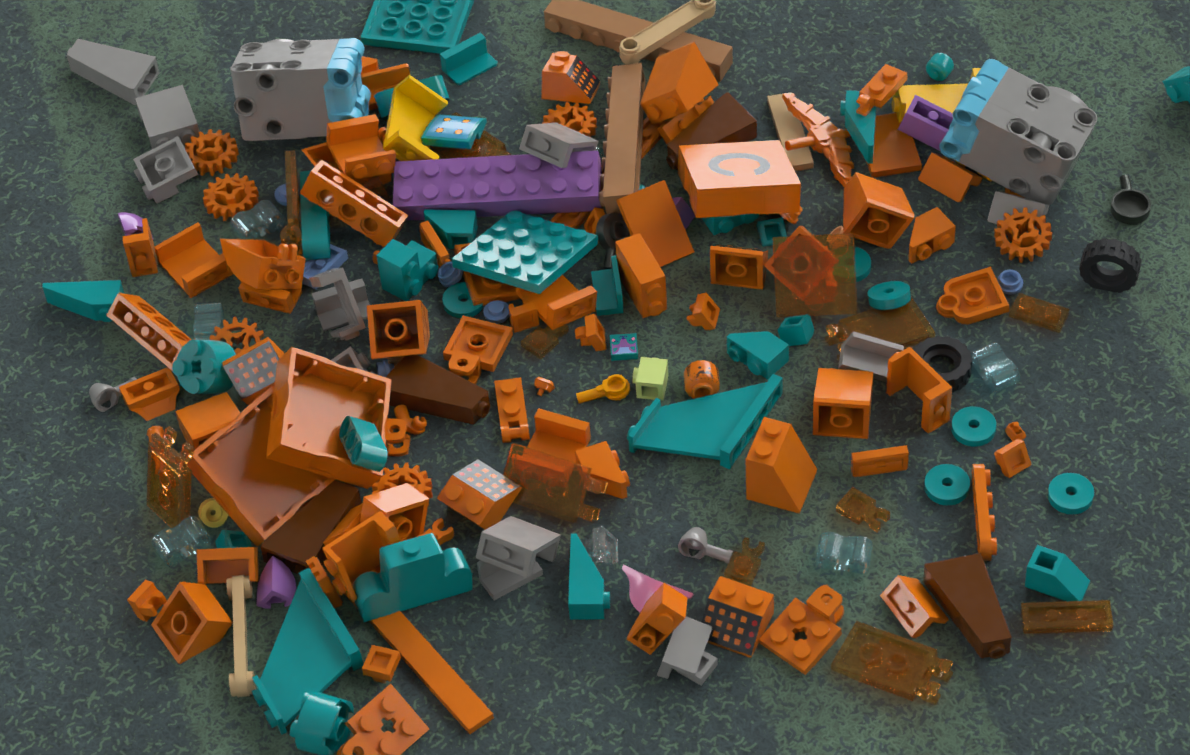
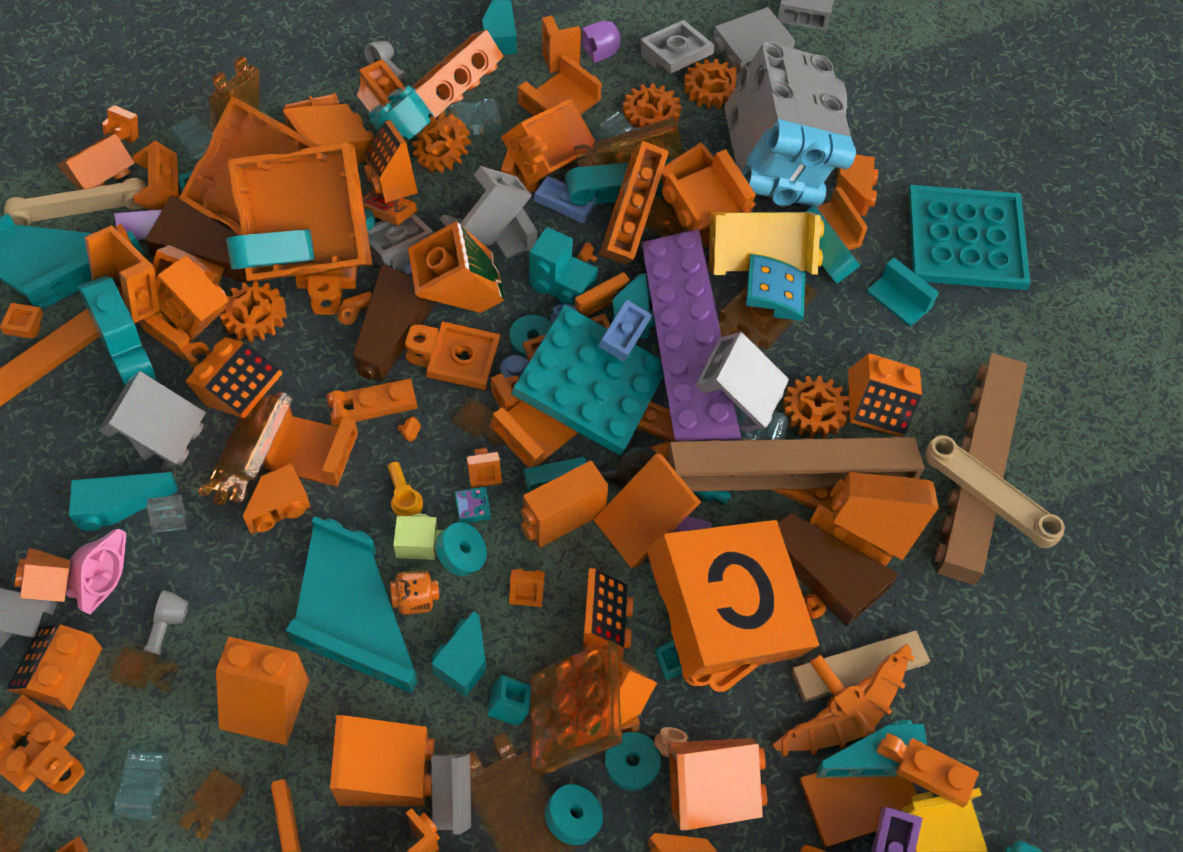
camera: 75 degrees right, 10 degrees up
(488, 219) = (625, 330): none -> medium blue plate
(667, 348) = (452, 557): none -> teal piece

